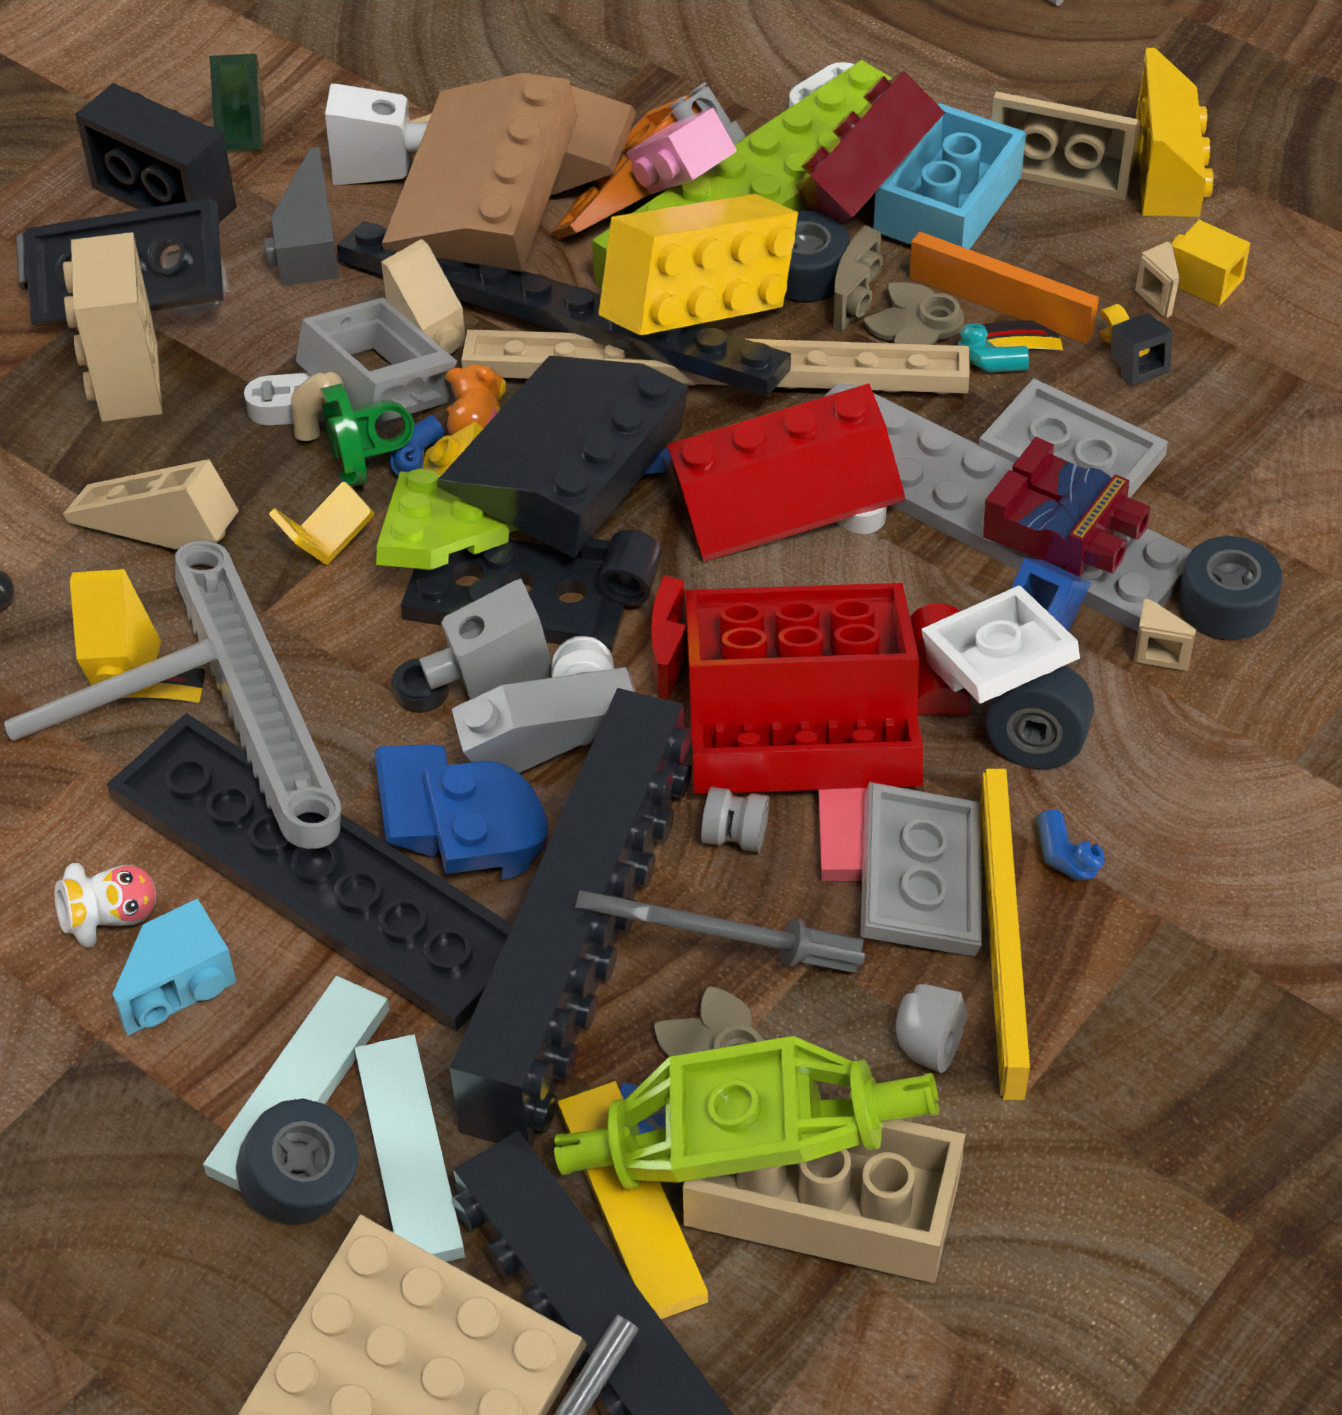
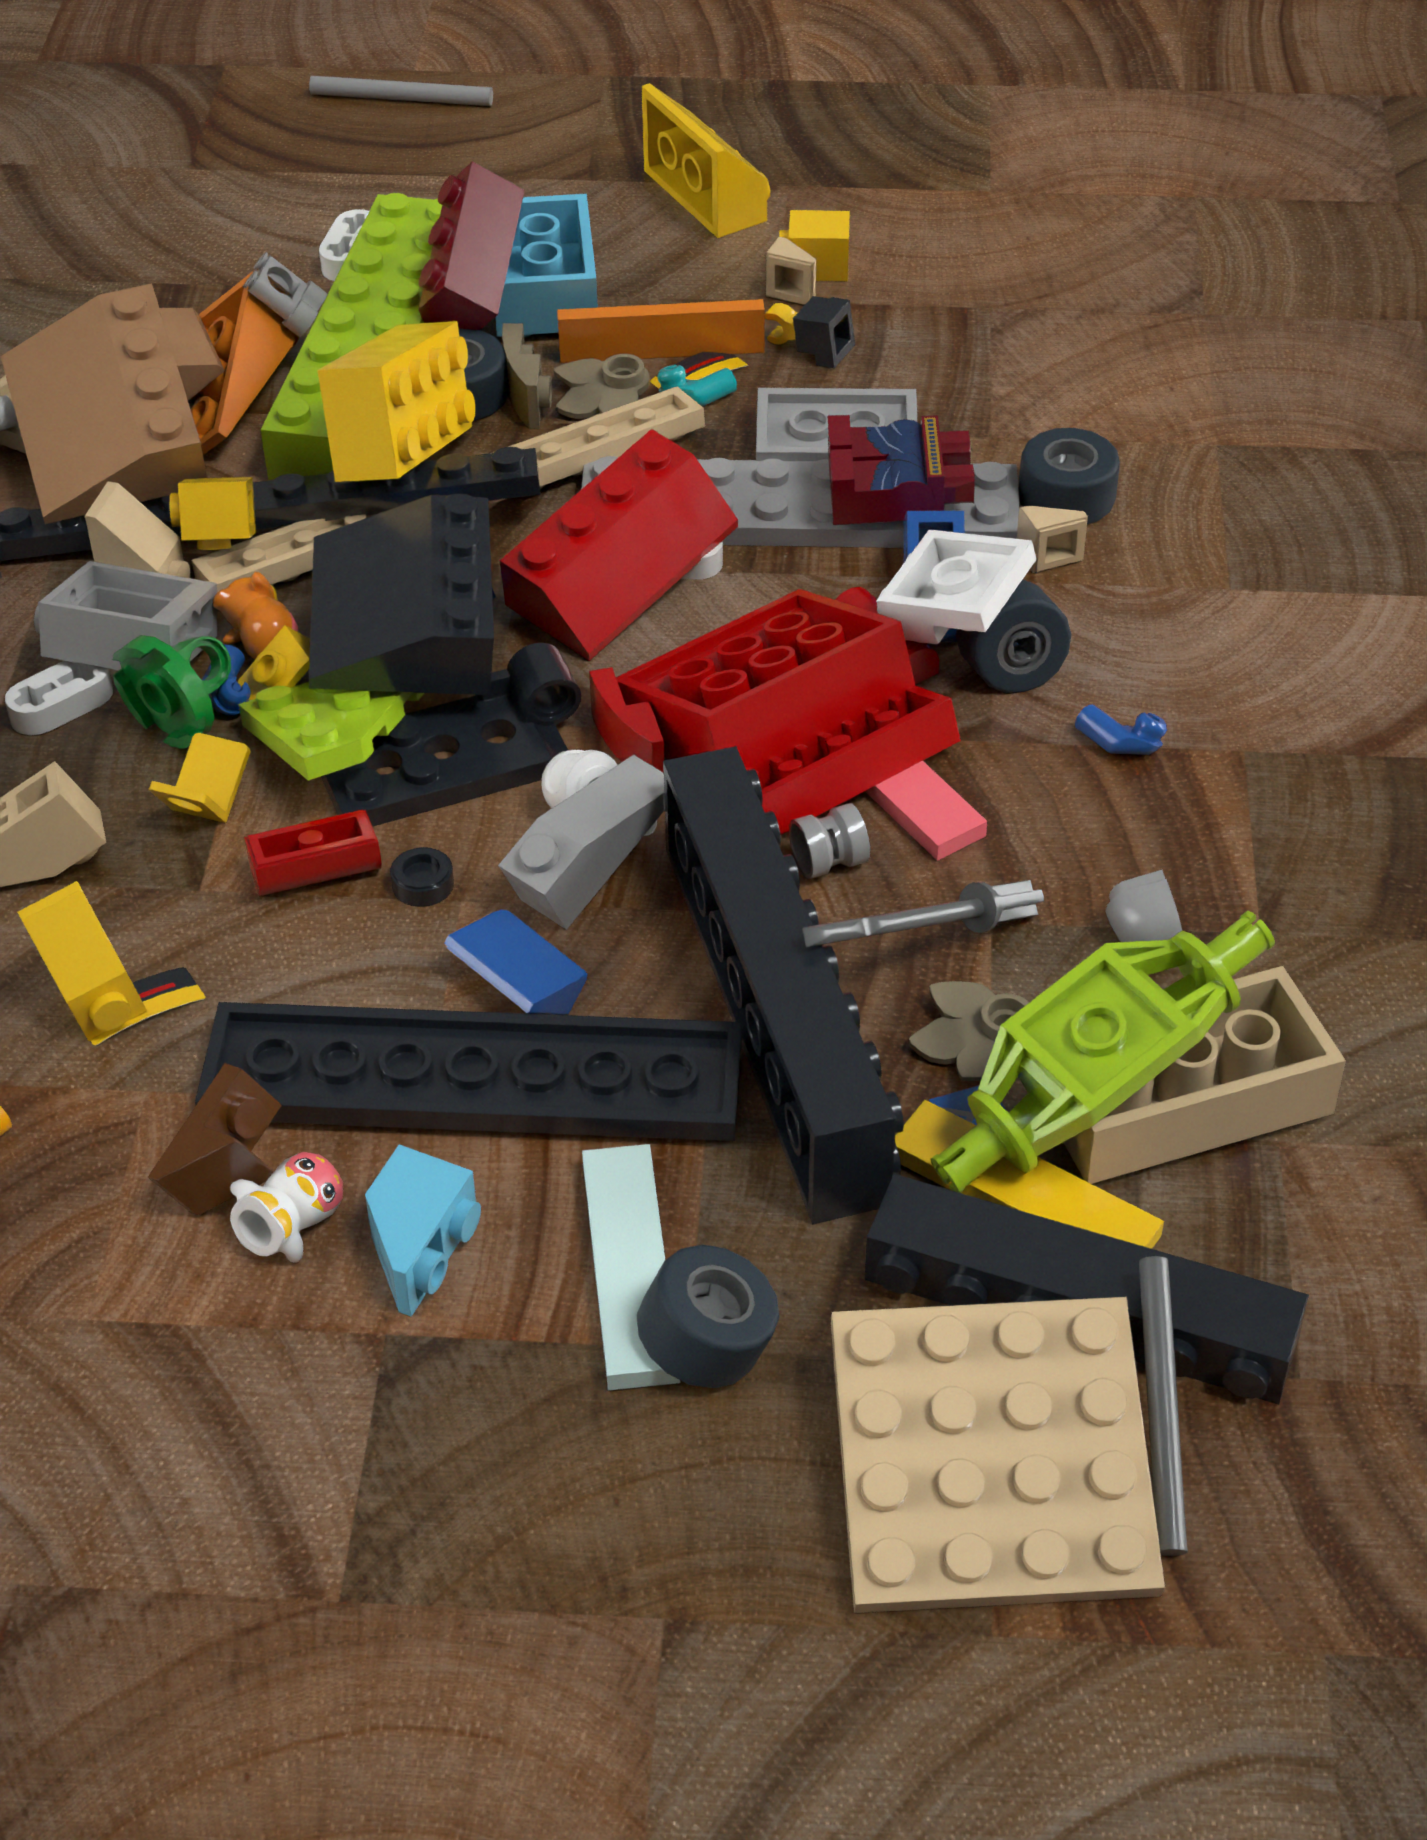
camera: 35 degrees left, 5 degrees down
(89, 824) = (217, 1143): none -> reddish brown slope
(111, 689) = (121, 1017): light grey bar -> none
(258, 696) = (282, 949): light grey gear -> none
(307, 403) = (92, 680): tan arm -> none
(353, 624) = (313, 852): none -> red brick
(409, 1147) = (798, 1264): light aqua tile -> none
(485, 817) = (599, 948): blue slope -> none
(491, 644) = (482, 798): light grey torso -> none
(501, 296) = (214, 511): none -> yellow brick
(681, 151) = (291, 318): bright pink brick -> none
(921, 870) = (1022, 804): light grey tile -> none
(1004, 937) = (1136, 811): yellow tile -> none
(1073, 144) = (628, 192): tan slope -> none

